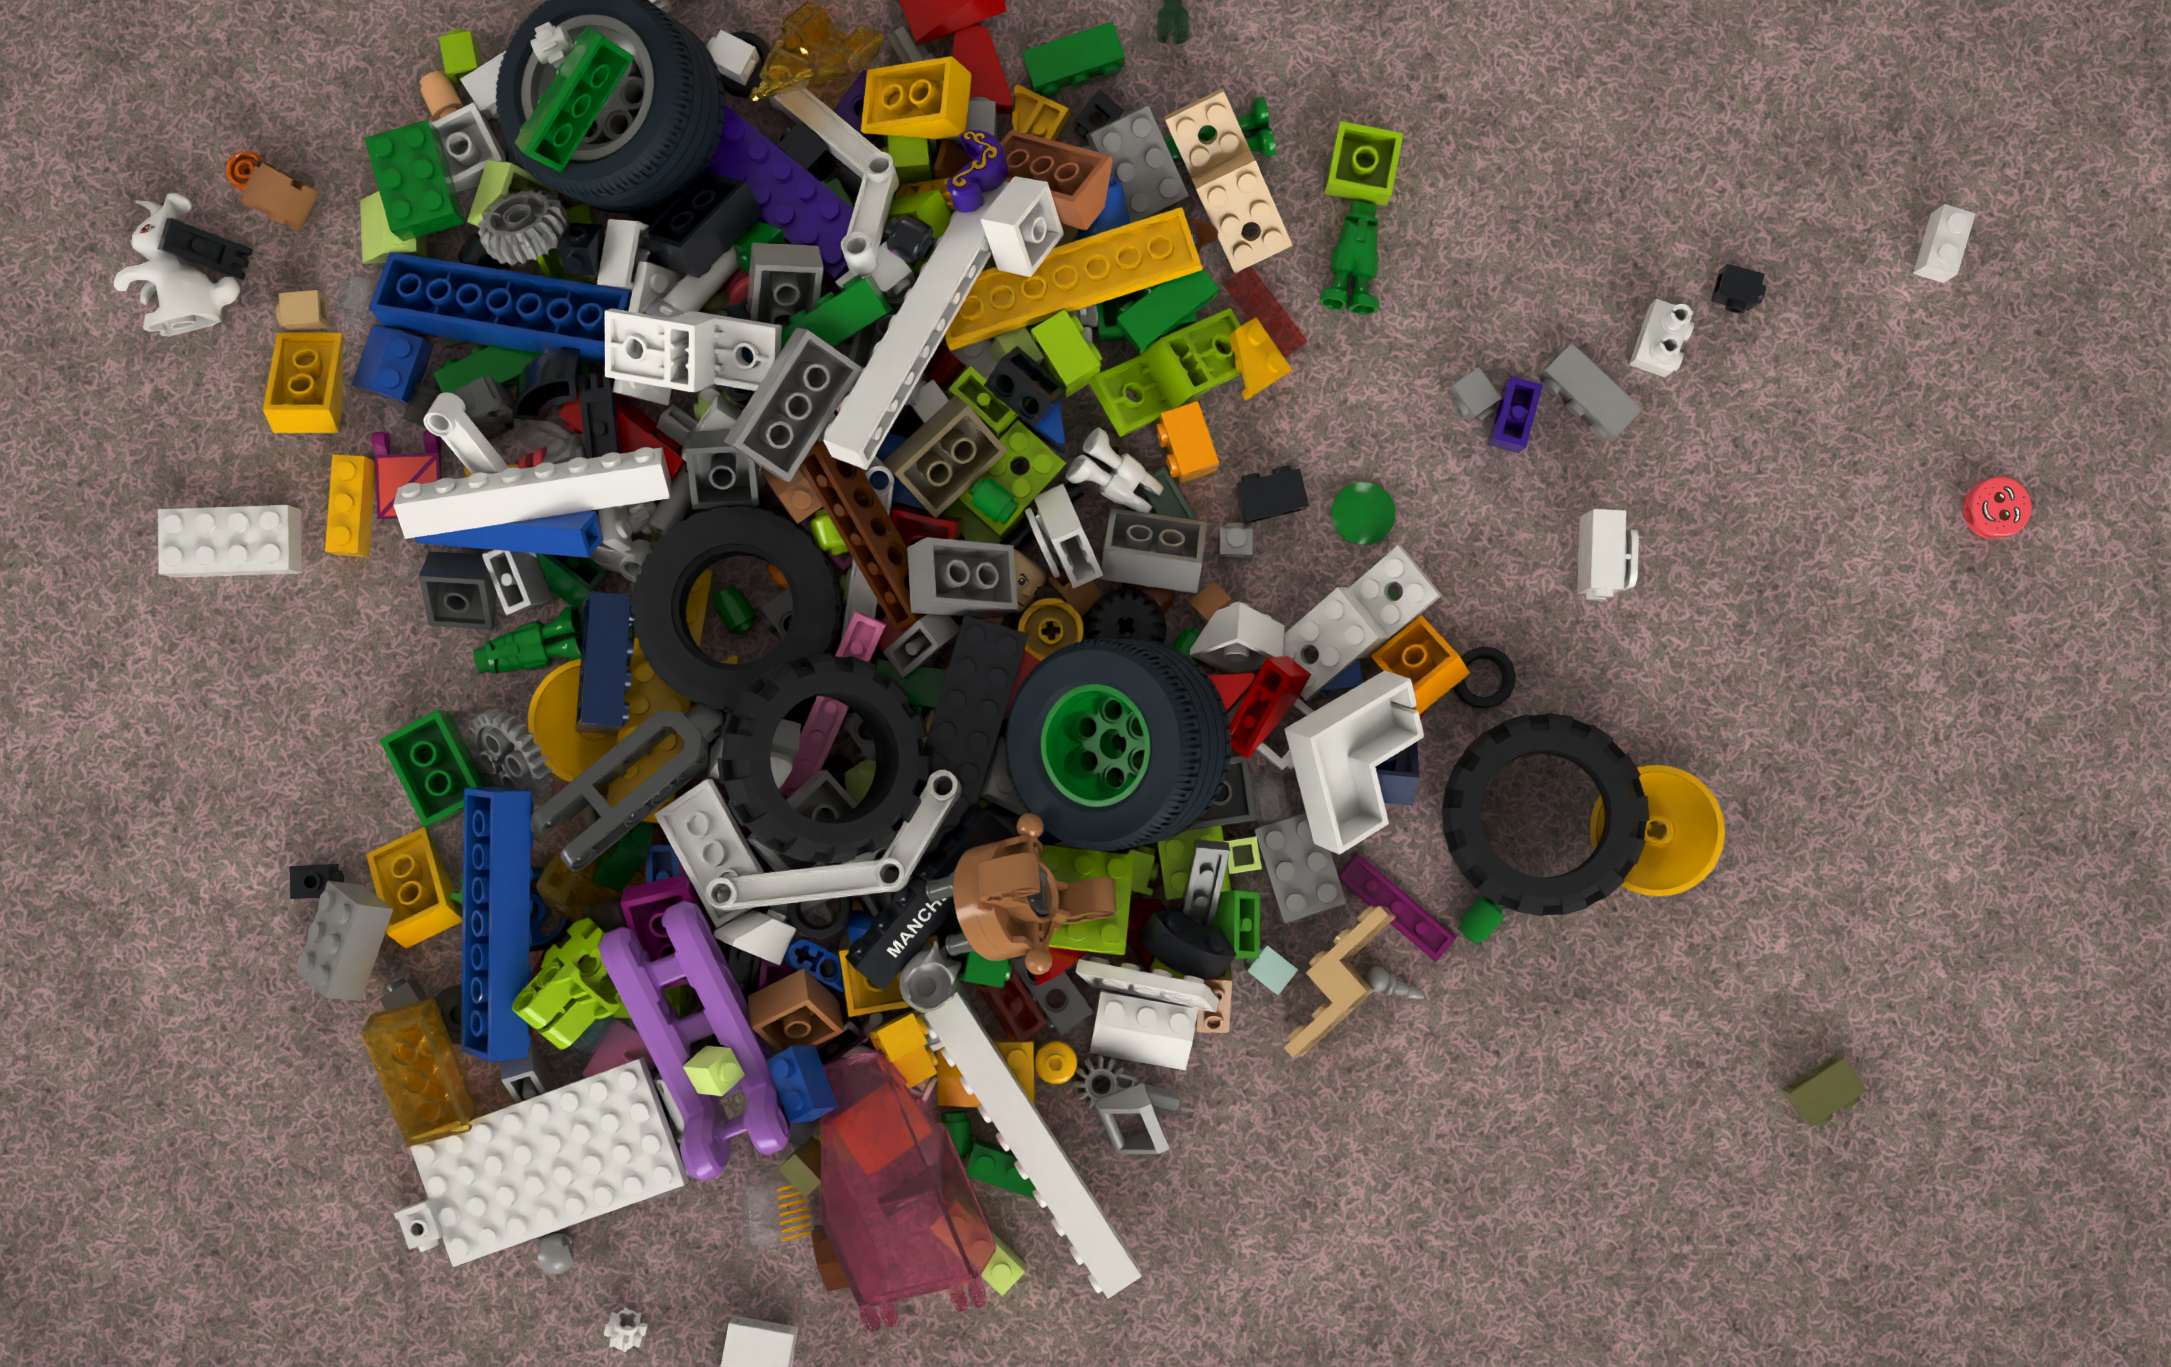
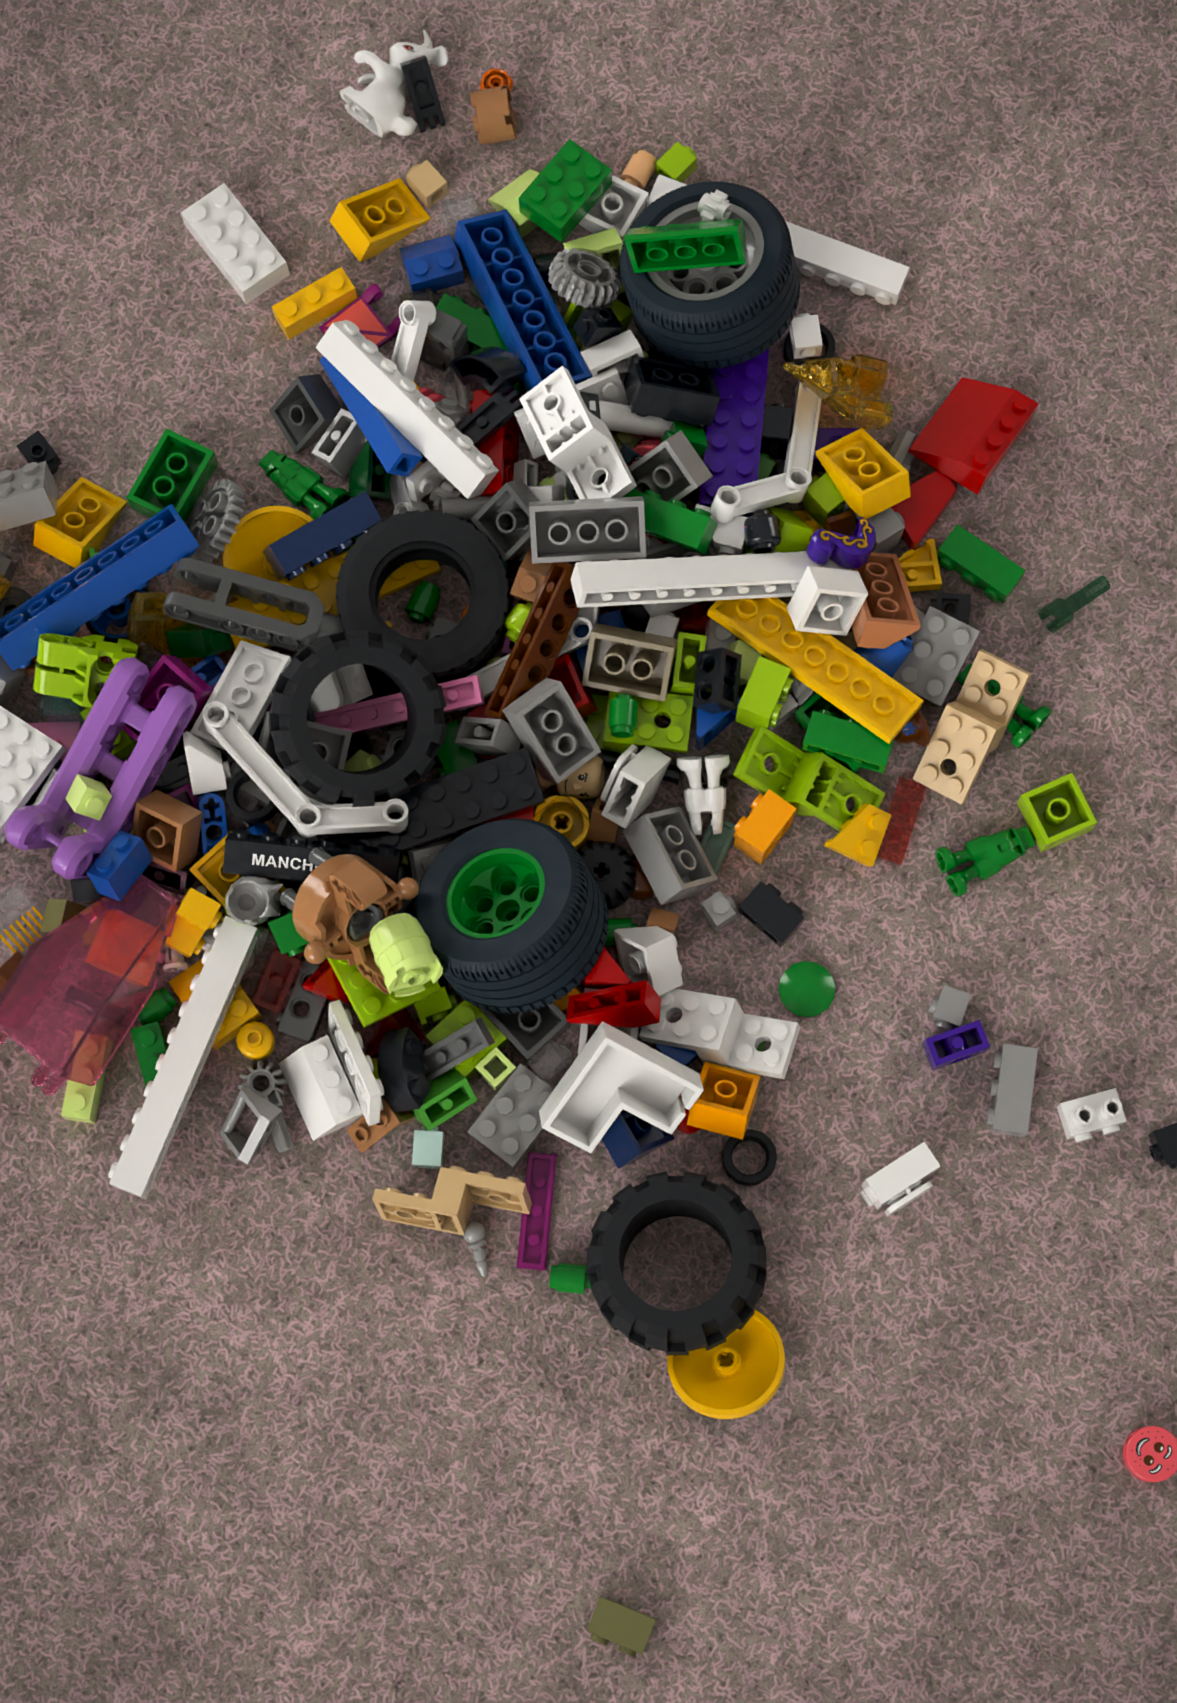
camera: 55 degrees right, 10 degrees down
(1095, 875) = (404, 954): none -> yellowish green piece

